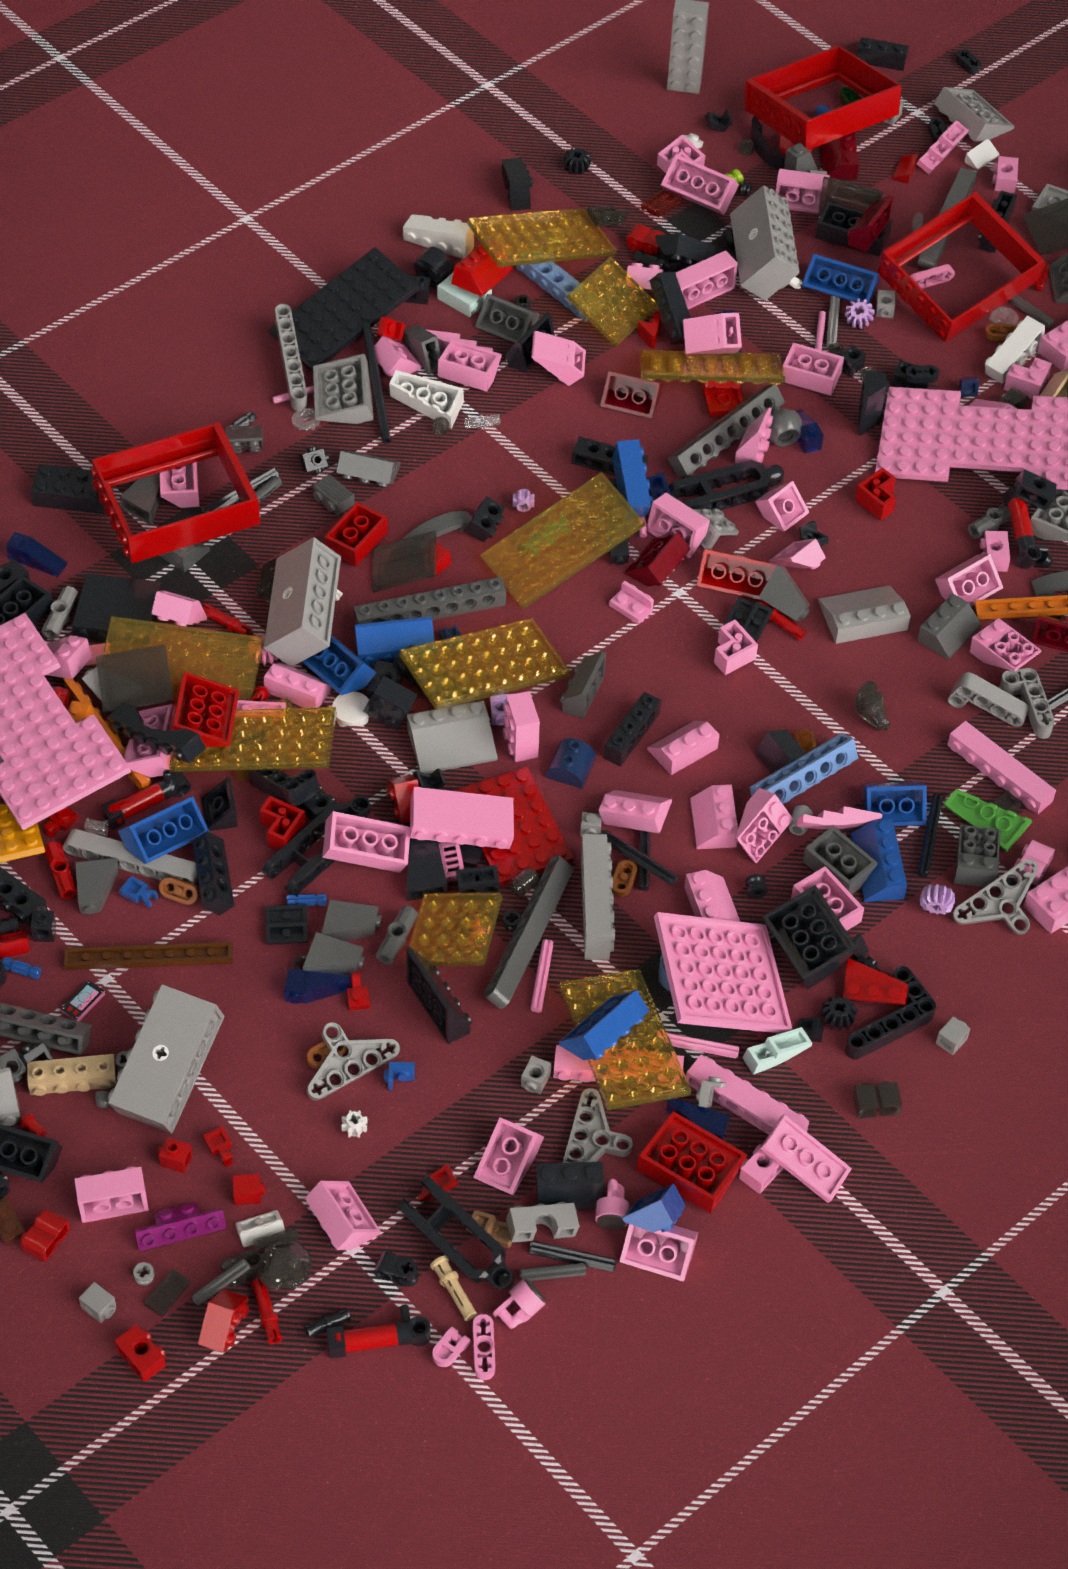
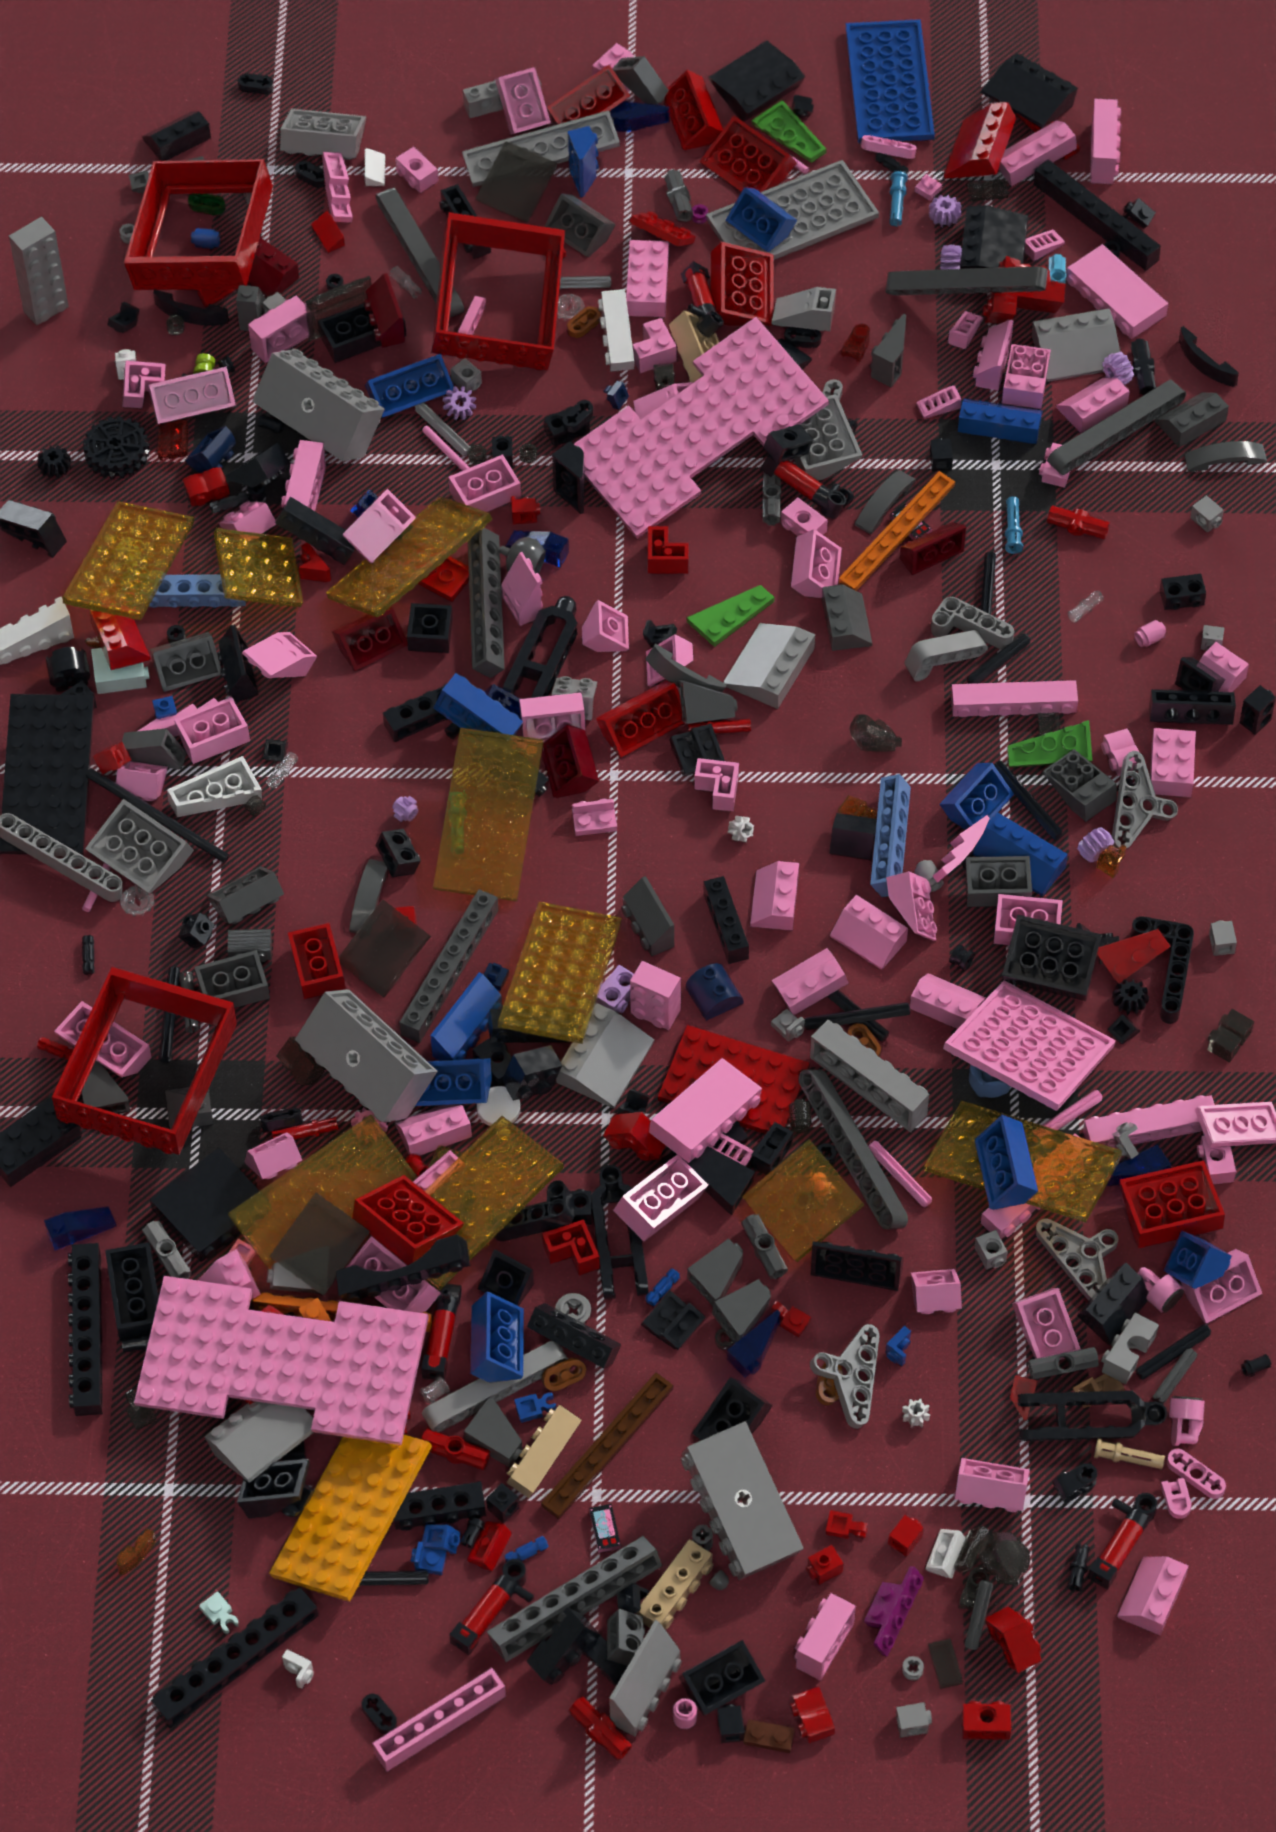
camera: 45 degrees left, 5 degrees up
(31, 1125) = (697, 1652): red pin -> none
(105, 920) = (544, 1450): none -> tan brick
(220, 601) = (281, 1119): none -> black beam
(245, 438) = (124, 956): dark grey slope -> none
(246, 860) = (575, 1301): none -> light grey gear
(247, 1012) = (731, 1407): none -> black slope
(268, 1318) = (1034, 1605): red pin -> none
(293, 504) = (234, 979): none -> dark grey brick
(352, 1392) = (1153, 1593): none -> bright pink slope
(458, 330) = (164, 707): none -> blue bracket
(467, 1064) = (936, 1291): none -> bright pink slope
(476, 1180) = (1076, 1360): none -> dark grey piece
(495, 406) = (275, 750): none -> black slope
(607, 215) = (148, 492): clear smoke bracket -> none
(615, 1320) = (1260, 1363): none -> black pin
(622, 181) = (116, 447): none -> black piece
(672, 416) = (430, 628): none -> black brick
(674, 222) = (212, 450): none -> dark blue brick
(711, 681) = (740, 828): none -> white gear
(776, 1050) = (1123, 1066): light aqua slope -> none
(786, 558) = (673, 671): none -> dark grey slope
(821, 402) = (524, 510): none -> red brick
(876, 565) = (728, 616): none -> bright green wing
(934, 916) = (1110, 860): none -> clear orange slope
(1002, 646) = (907, 598): bright pink slope -> none
(1023, 737) = (999, 659): none -> black axle

